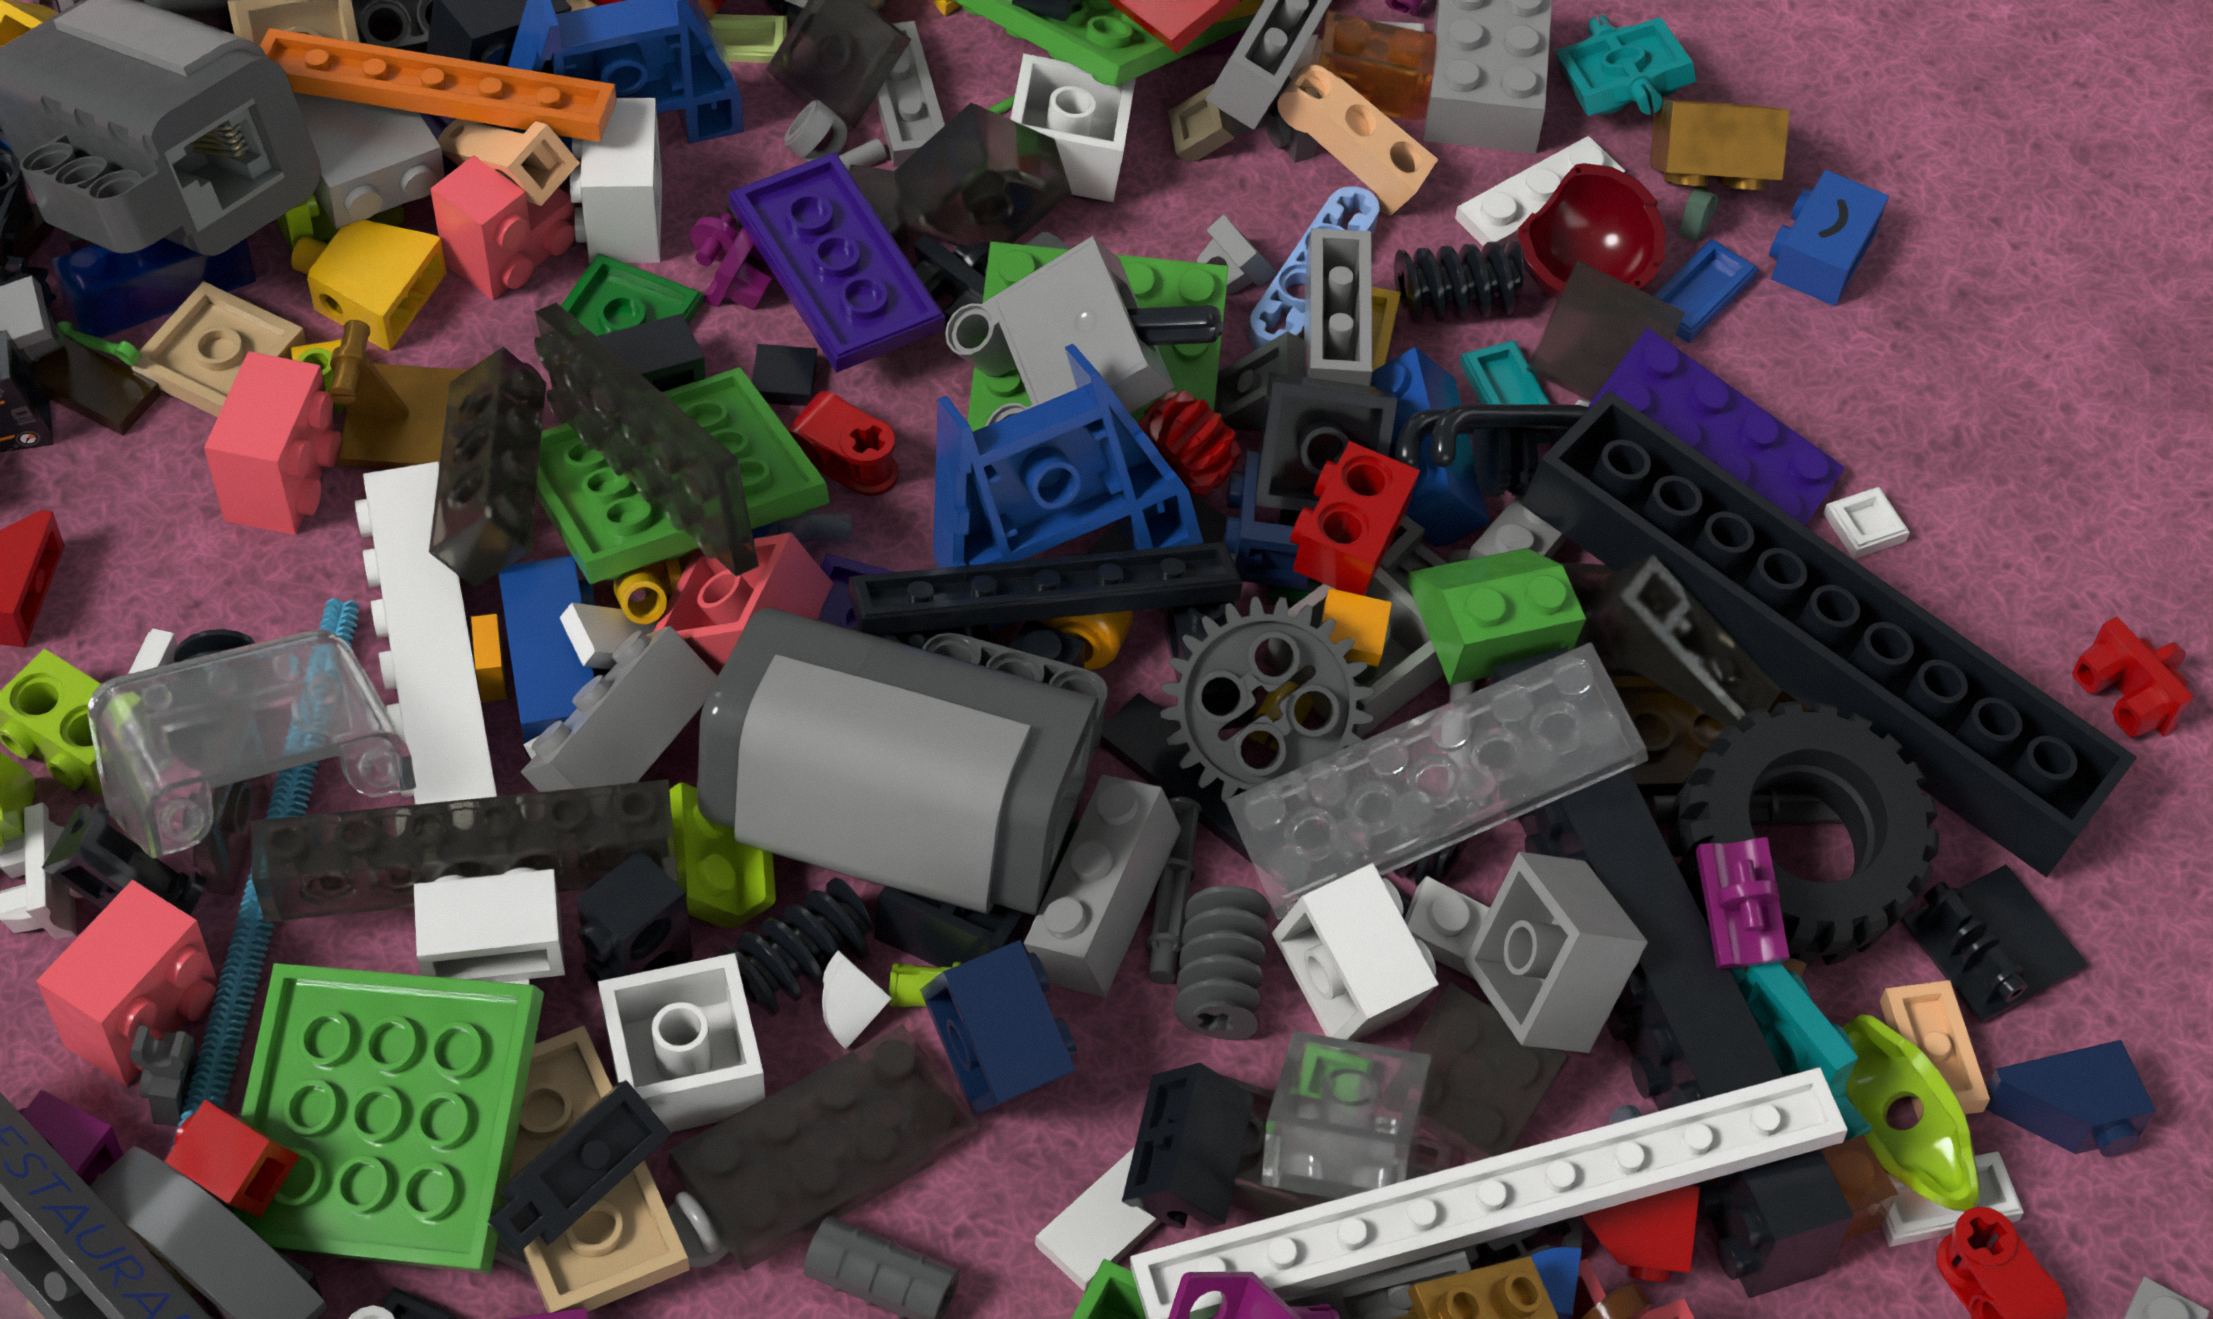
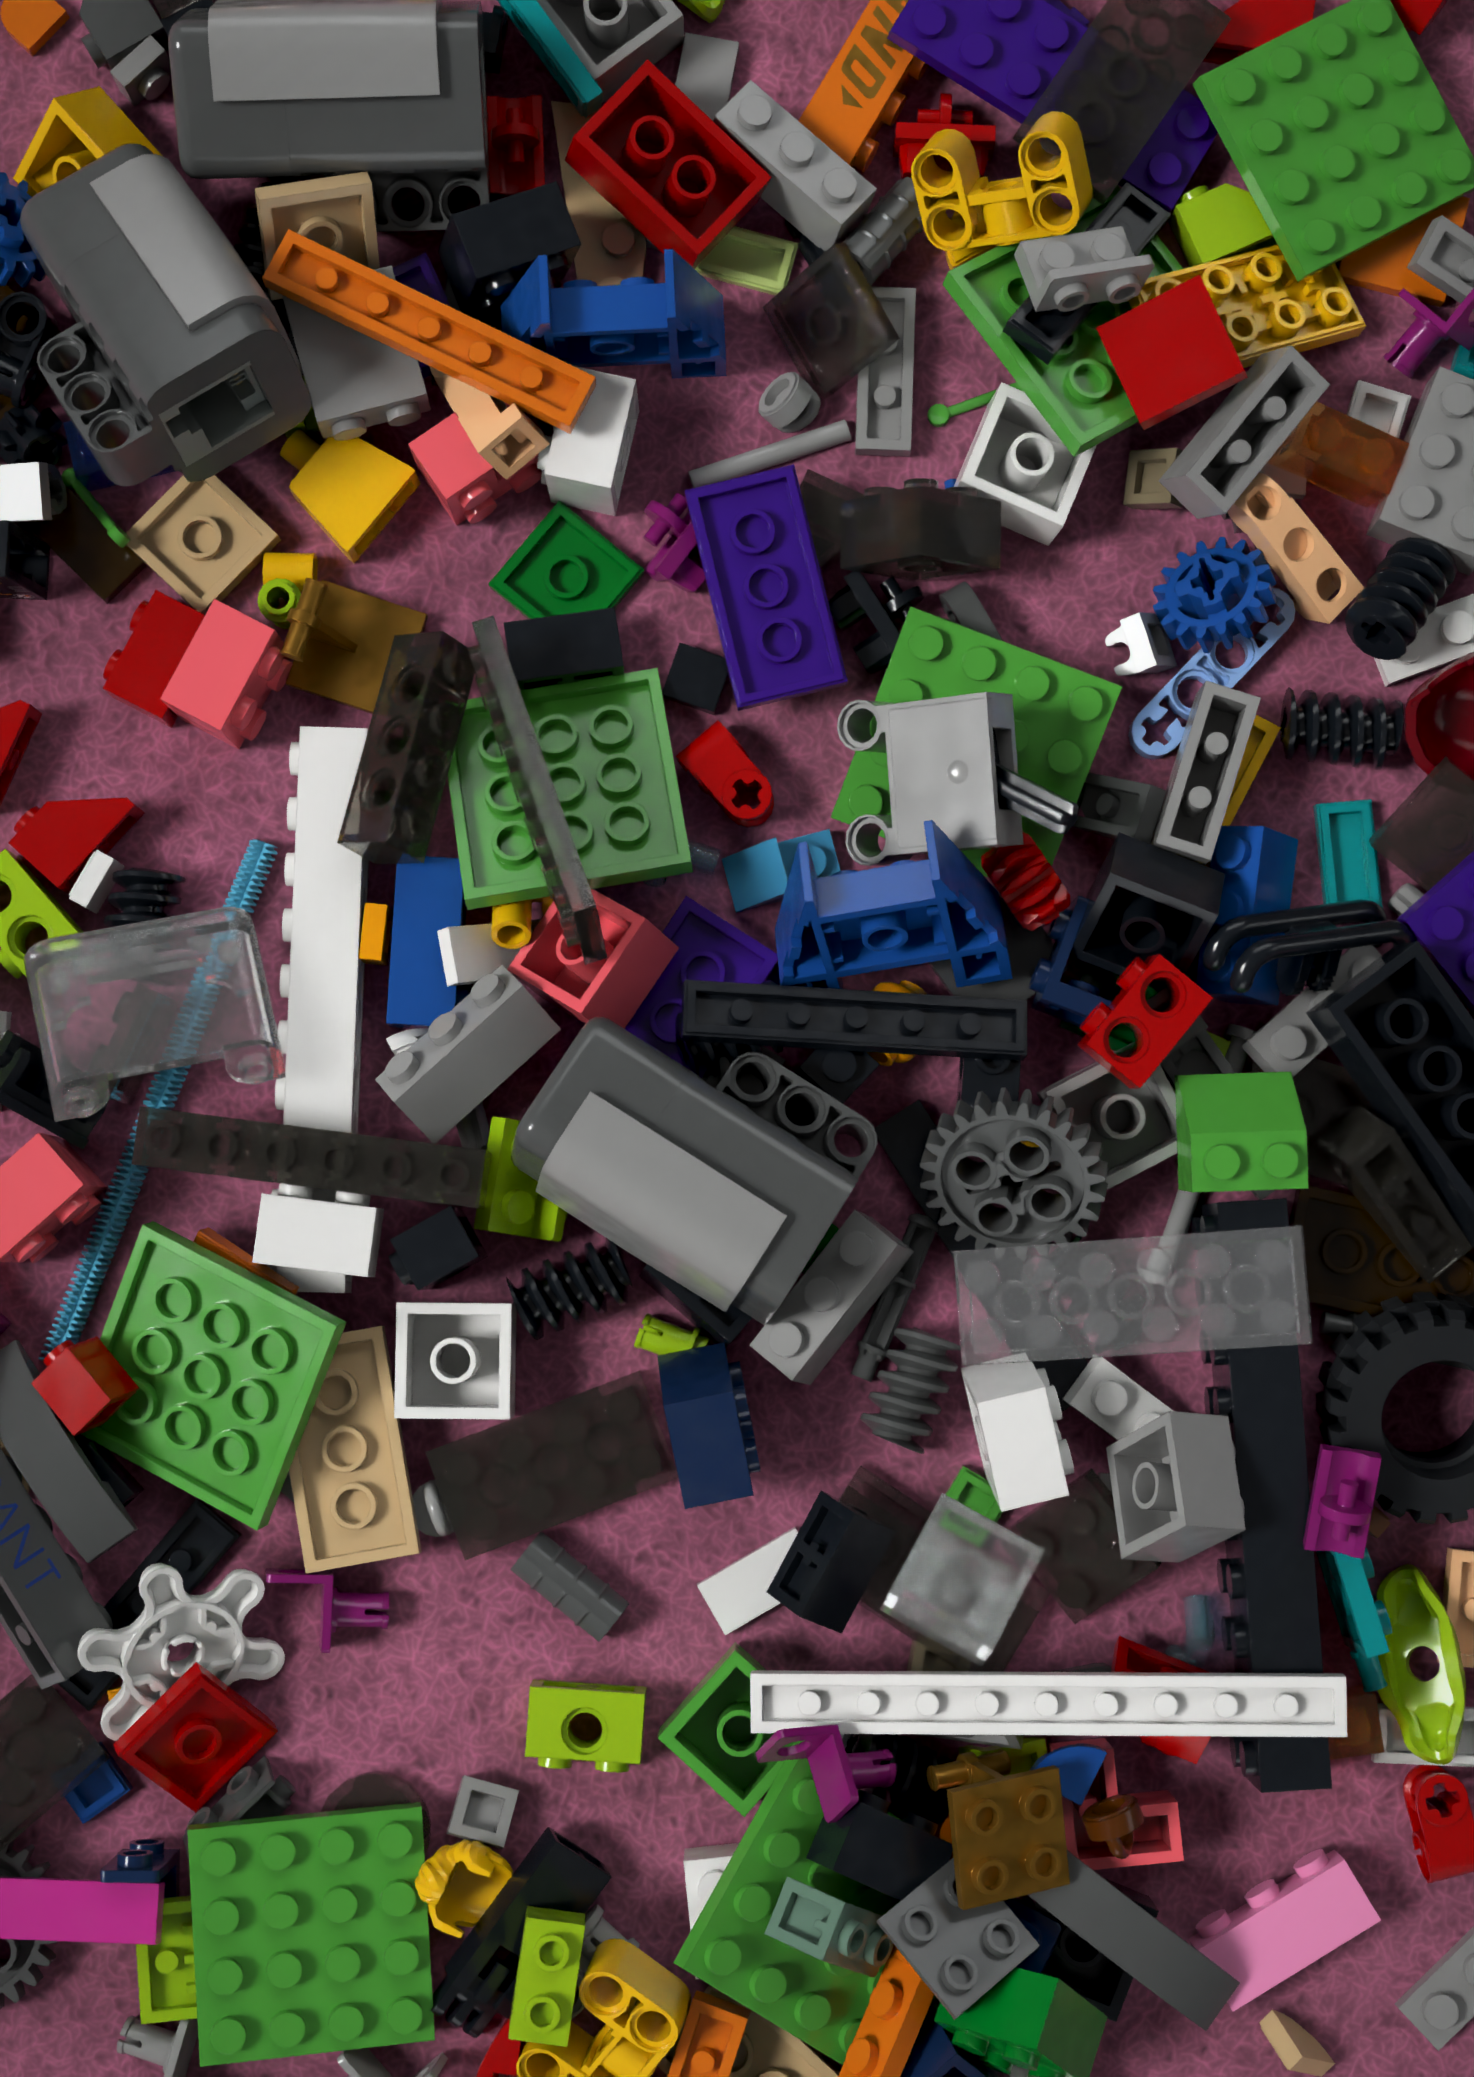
camera: 20 degrees right, 30 degrees up
(112, 625) = (67, 832): none -> red slope
(165, 1072) = (49, 1278): dark grey plate -> none
(175, 474) = (151, 655): none -> red brick
(578, 1168) = (346, 1470): black hinge -> none
(849, 999) = (602, 1343): white tile -> none
(900, 522) = (762, 871): none -> dark azure slope
(1293, 194) = (1215, 594): none -> blue gear
(1362, 620) = (1113, 1120): light orange tile -> none
(1475, 158) = (1399, 597): none -> black piece

